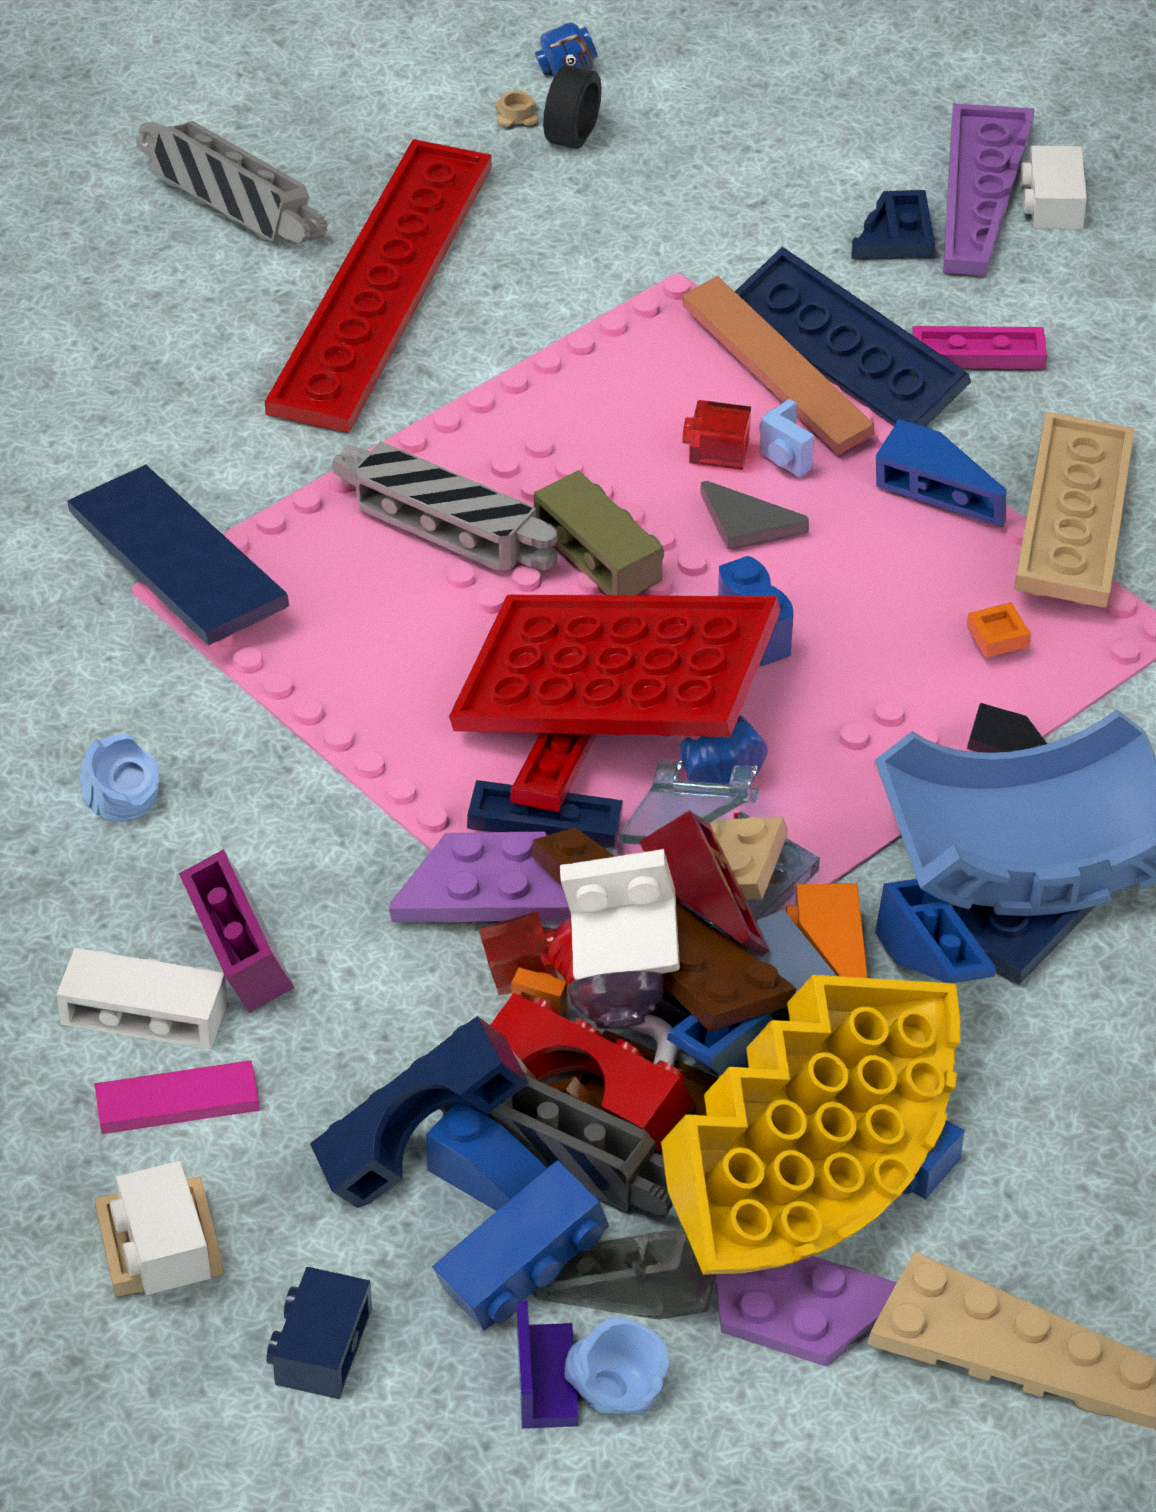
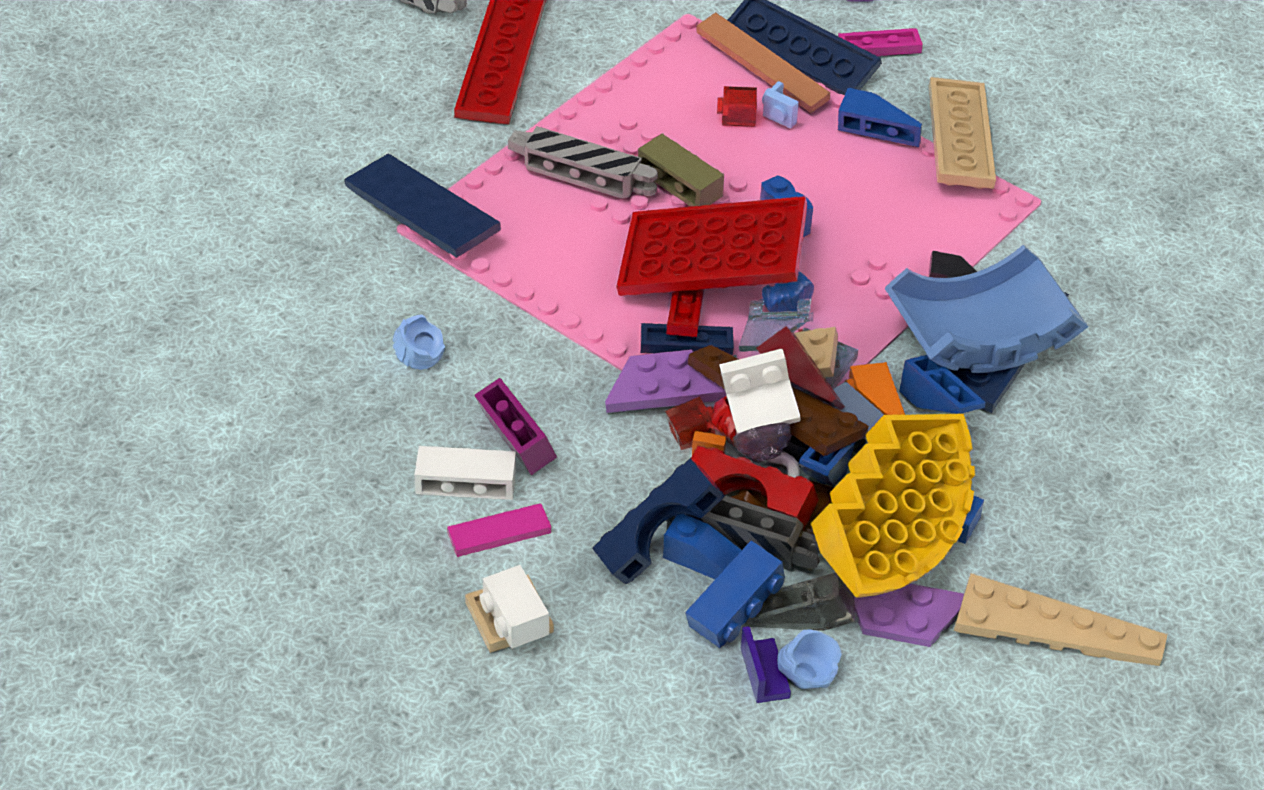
camera: 10 degrees left, 0 degrees up
(320, 1332) = (623, 660): dark blue brick -> none
(747, 519) = (766, 155): dark grey tile -> none
(998, 630) = (932, 207): orange plate -> none

